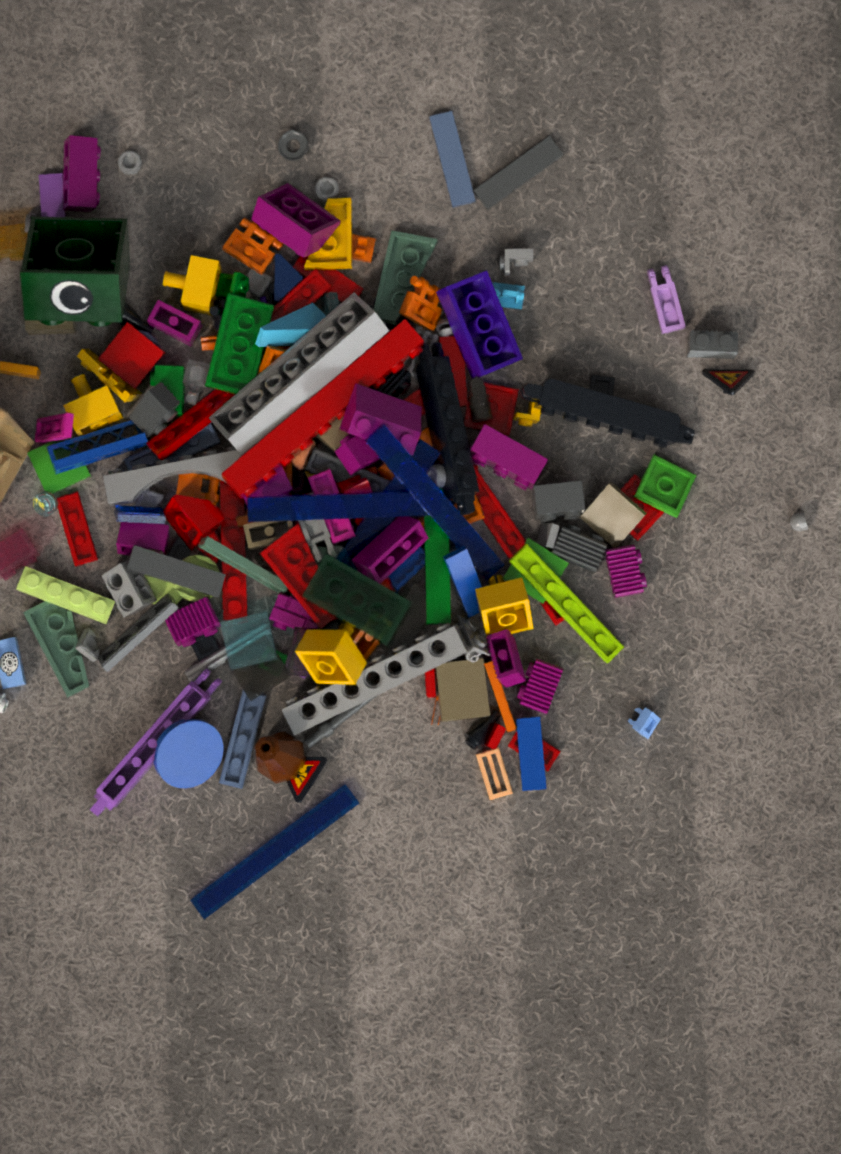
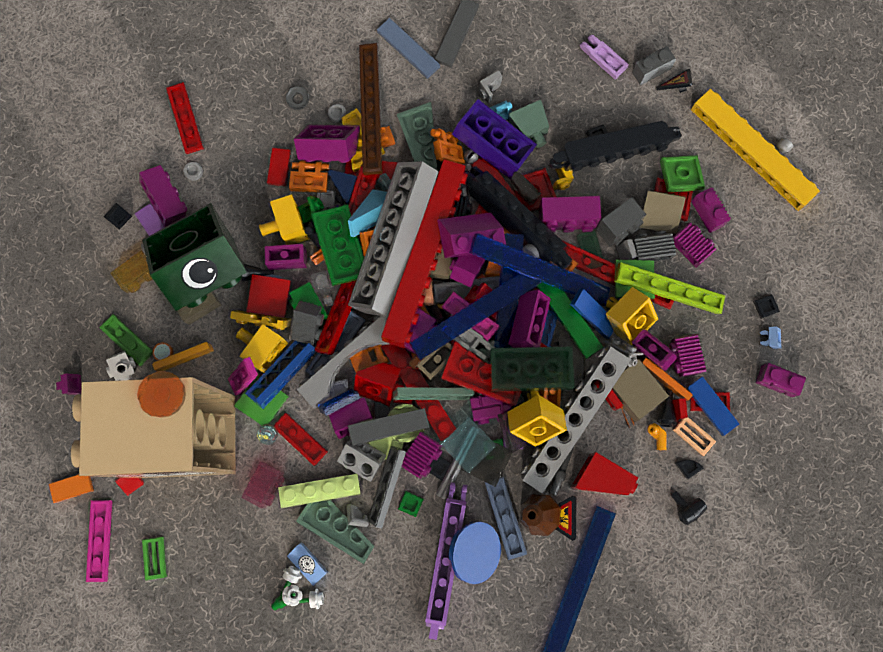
camera: 25 degrees left, 5 degrees down
(18, 167) = (117, 216): none -> black tile
(152, 666) = (410, 504): none -> green tile
(155, 94) = (185, 118): none -> red tile
(226, 214) = (279, 167): none -> red tile
(365, 207) = (370, 109): none -> reddish brown tile
(367, 757) = (604, 476): none -> red slope
(438, 847) = (689, 511): none -> black piece
(457, 750) = (659, 434): none -> light orange arm
(467, 803) = (689, 468): none -> black tile
(514, 504) = (589, 242): none -> clear green tile
(533, 329) = (531, 122): none -> sand green torso
(621, 770) = (780, 380): none -> magenta brick
(662, 685) = (766, 306): none -> black tile
(668, 545) = (710, 210): none -> magenta brick
(762, 506) = (755, 150): none -> yellow brick

